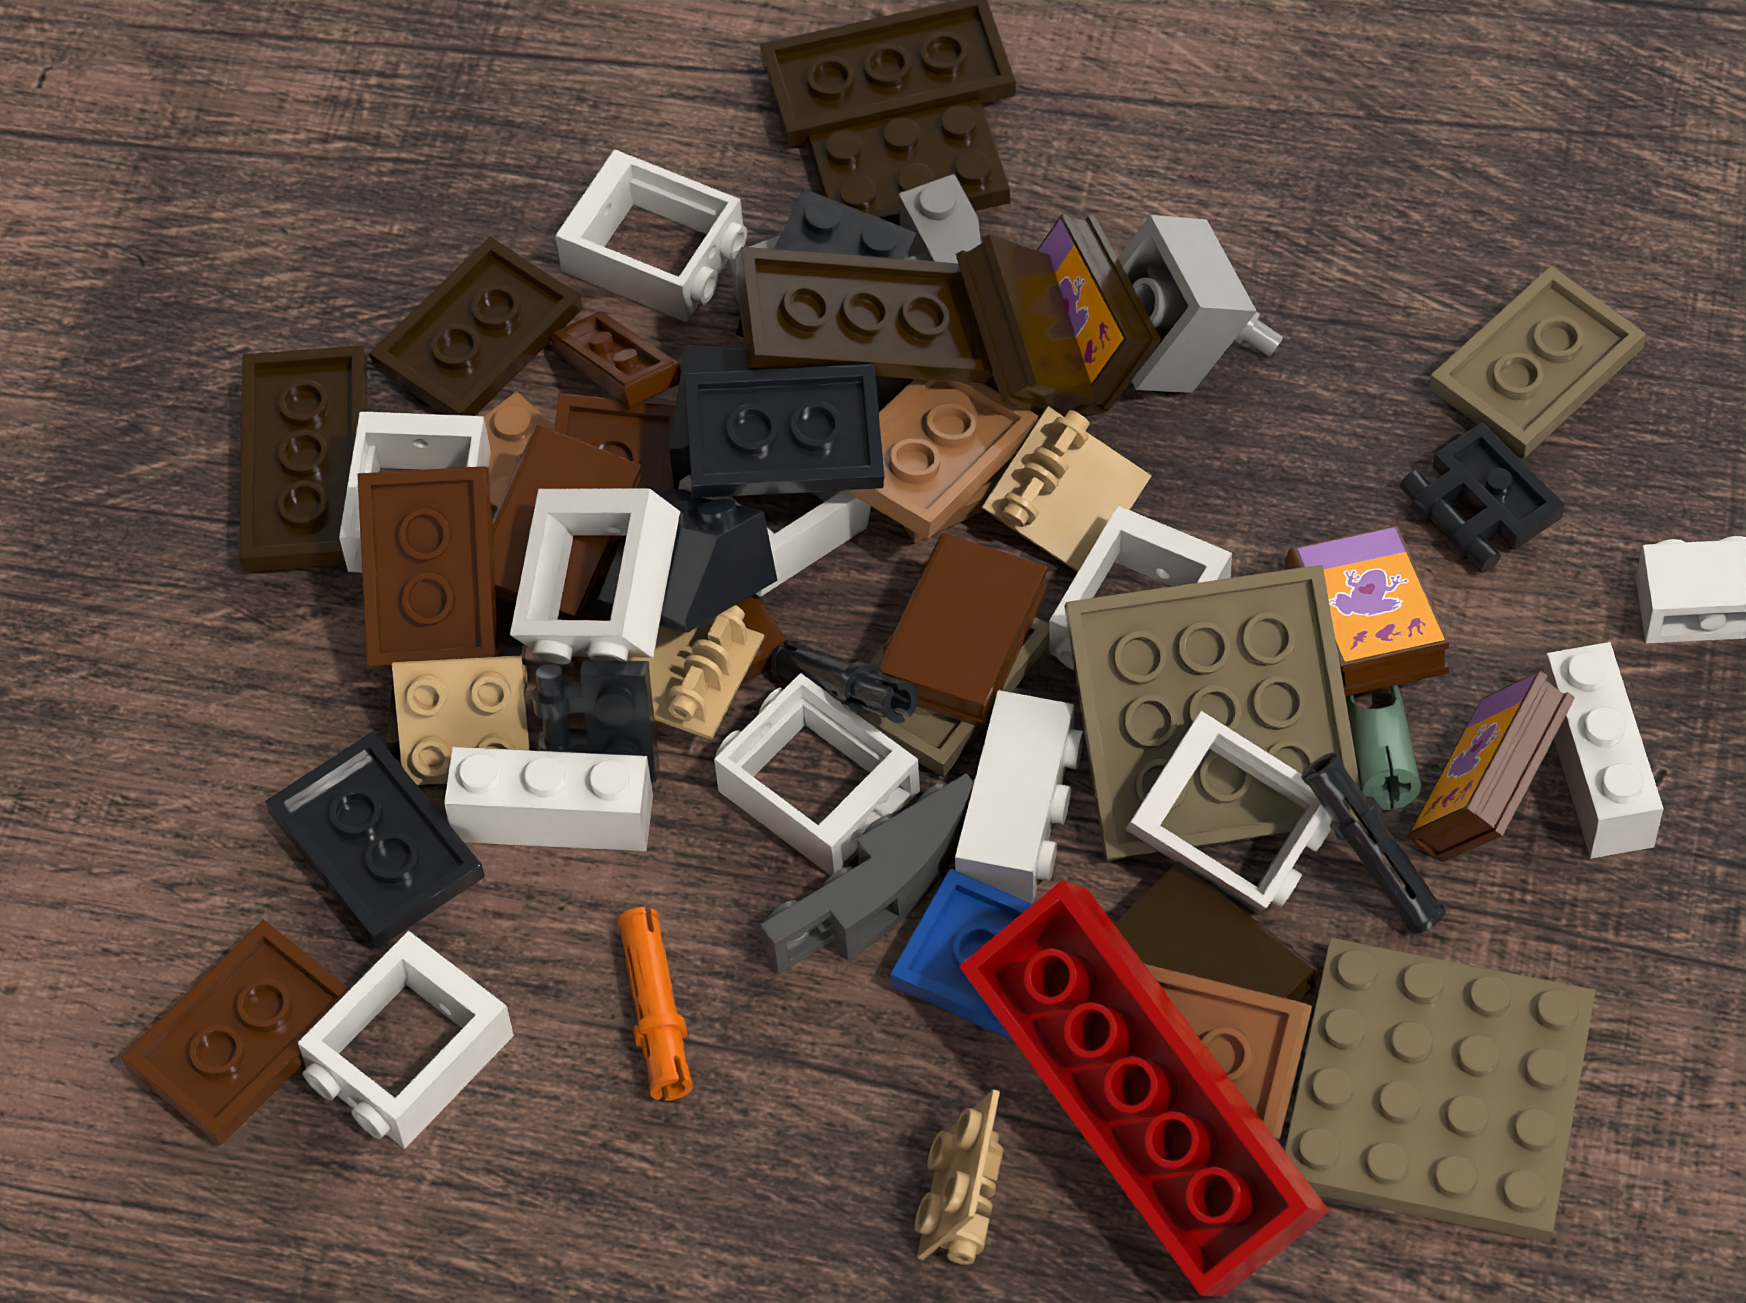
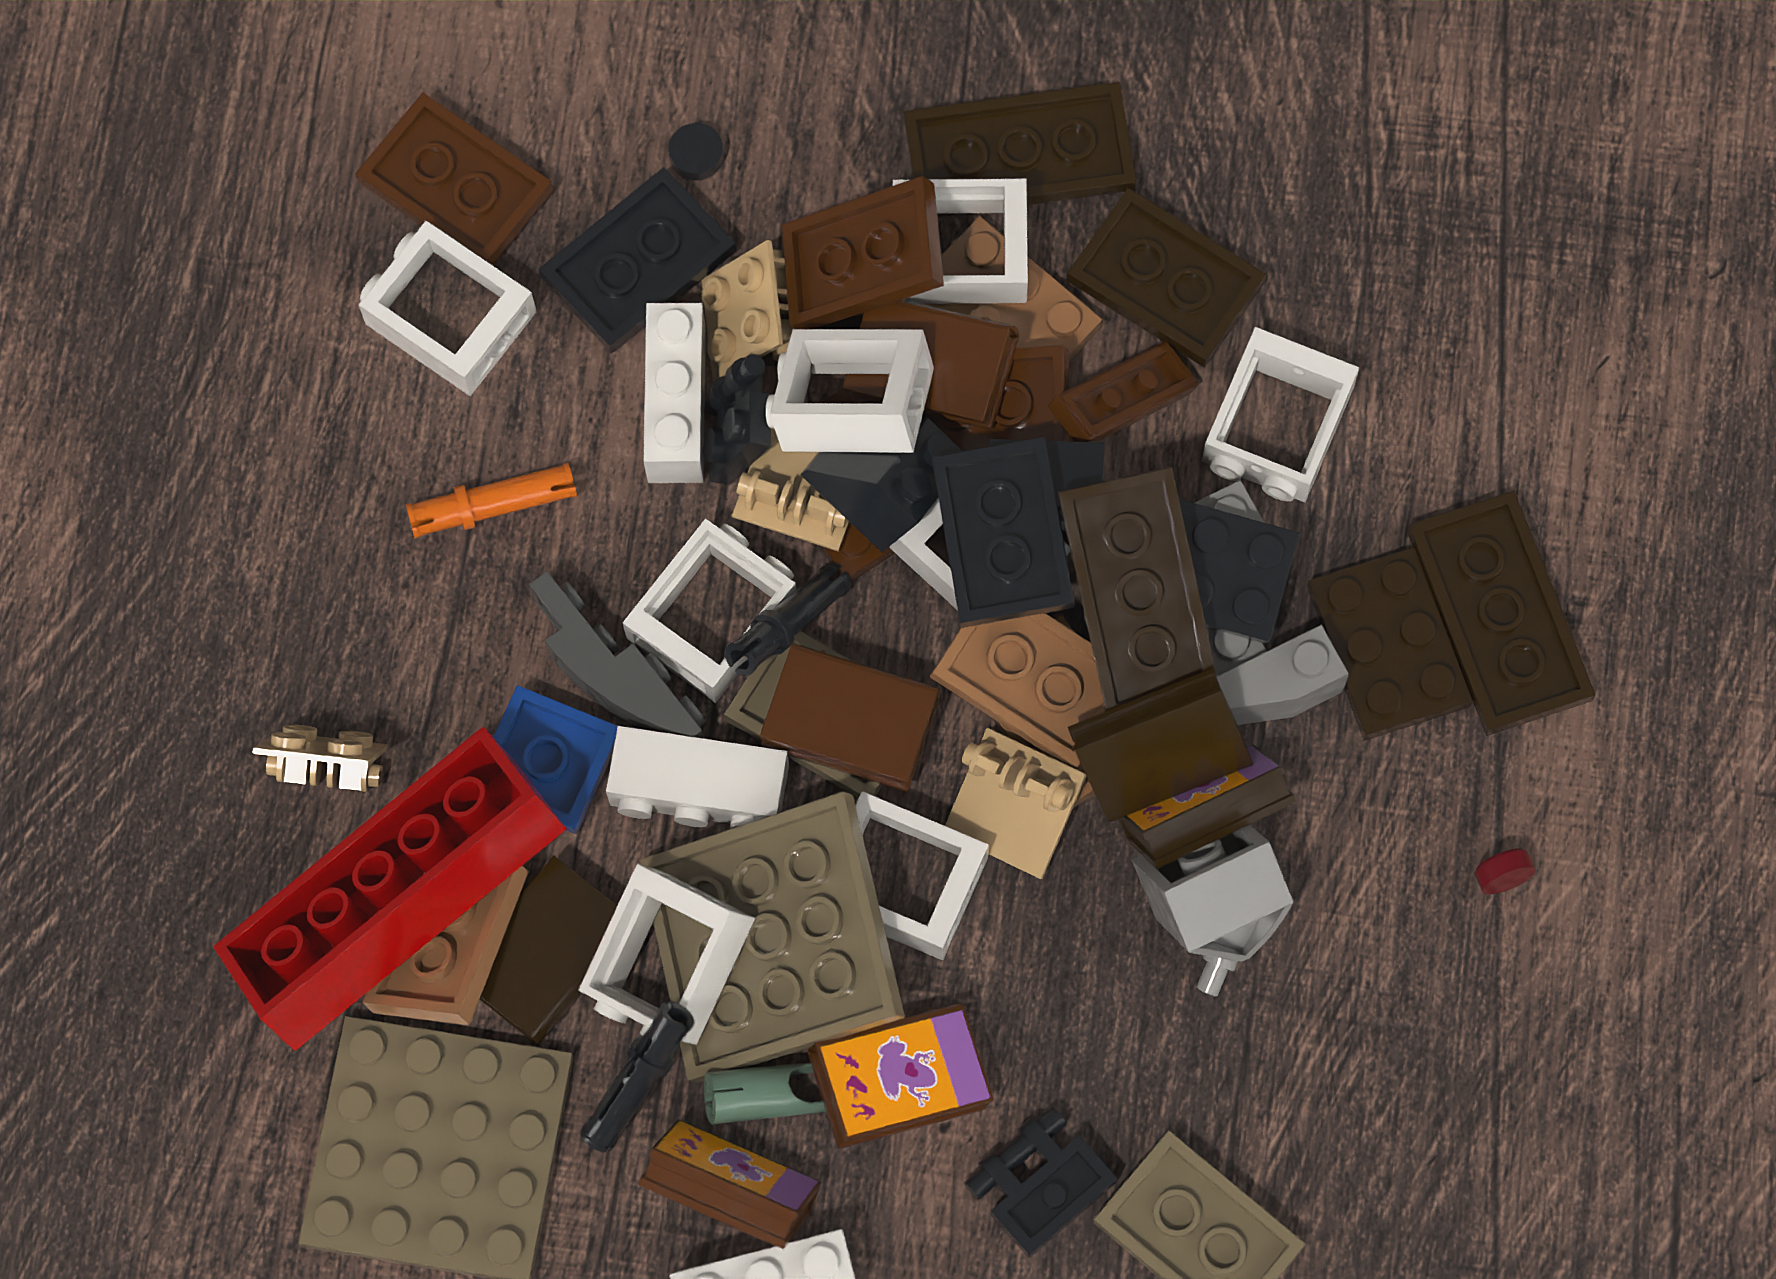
camera: 85 degrees right, 15 degrees up
(245, 779) = (696, 151): none -> black tile
(1163, 83) = (1504, 871): none -> dark red tile

